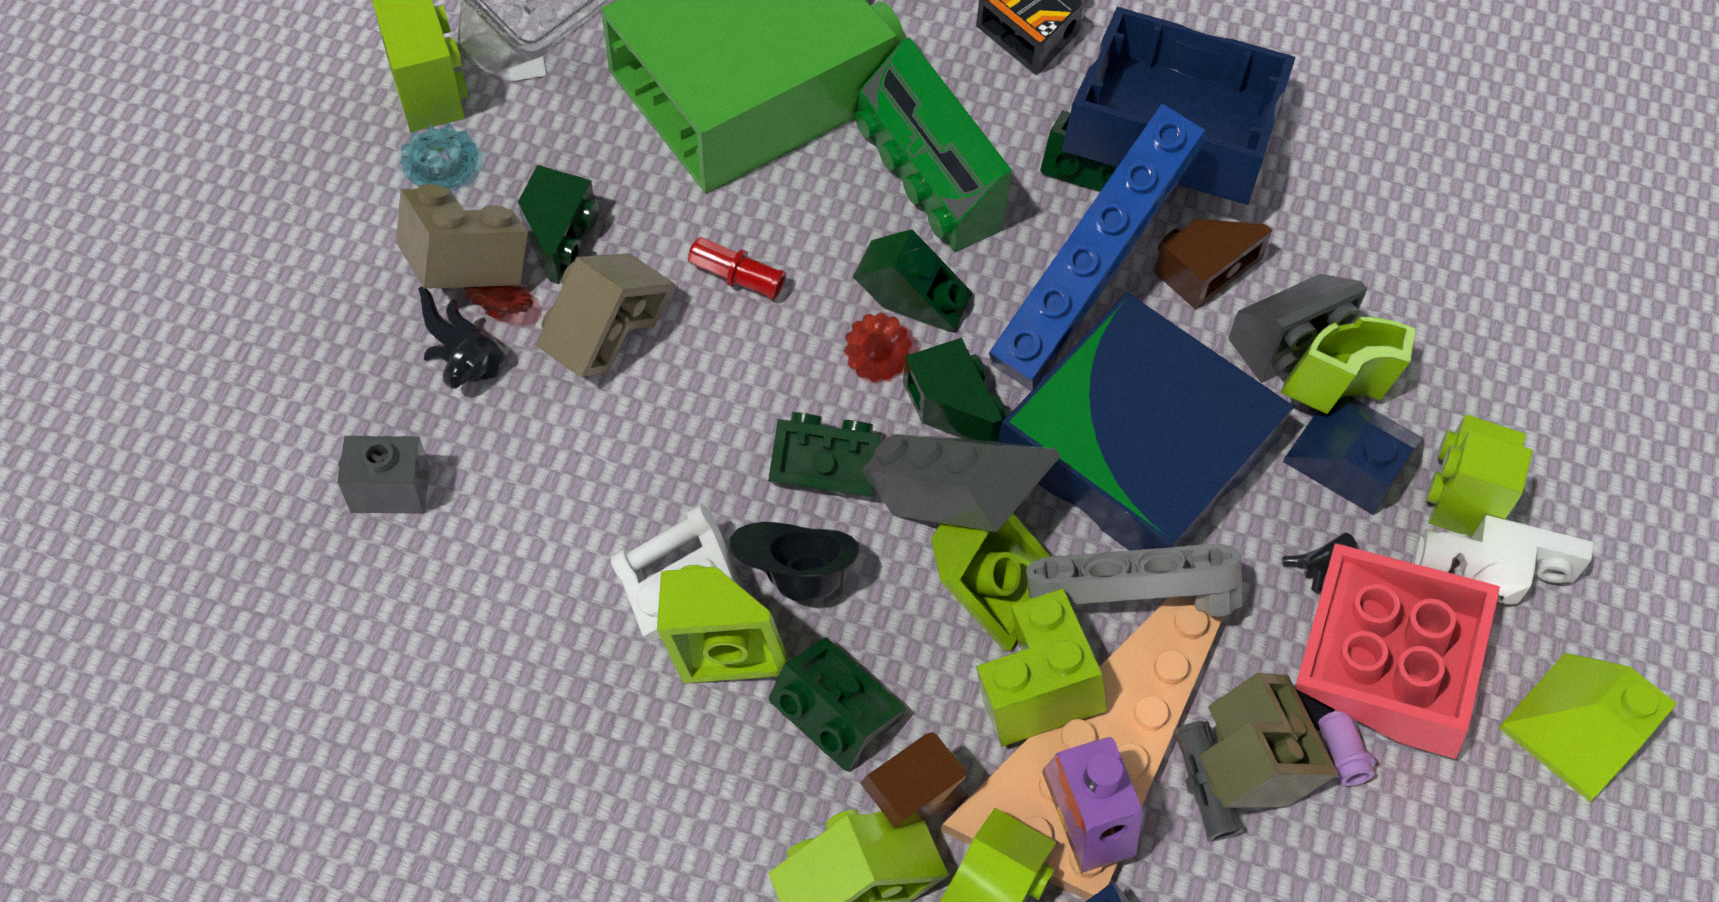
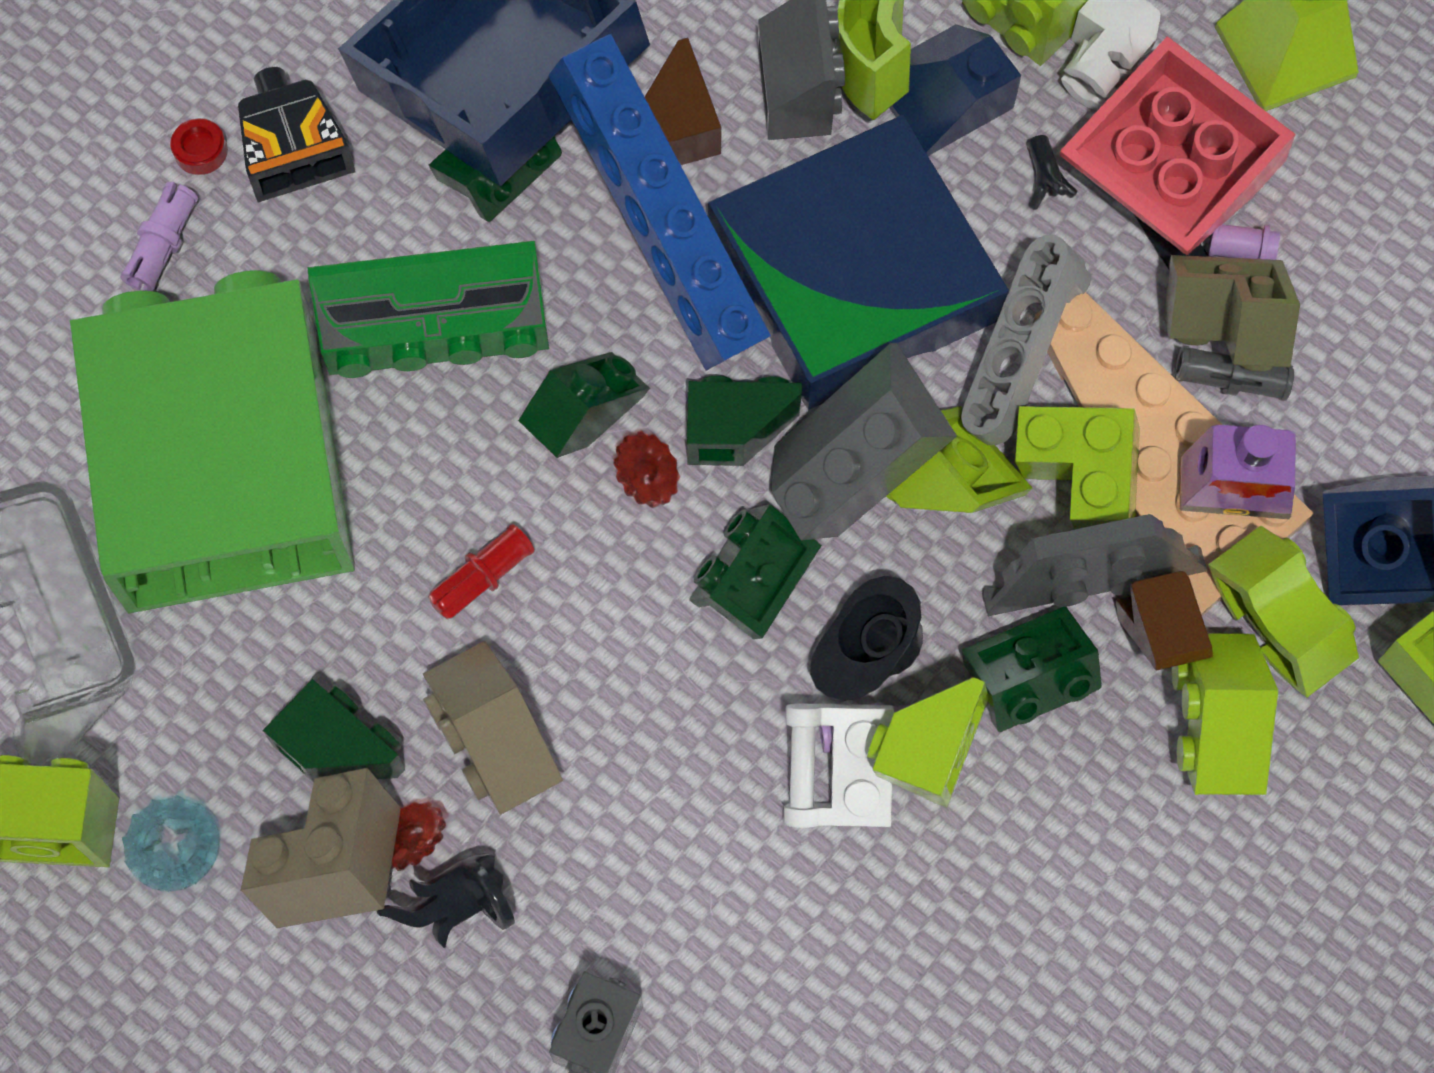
camera: 65 degrees left, 10 degrees up
(950, 705) = (1091, 561): none -> dark grey wing

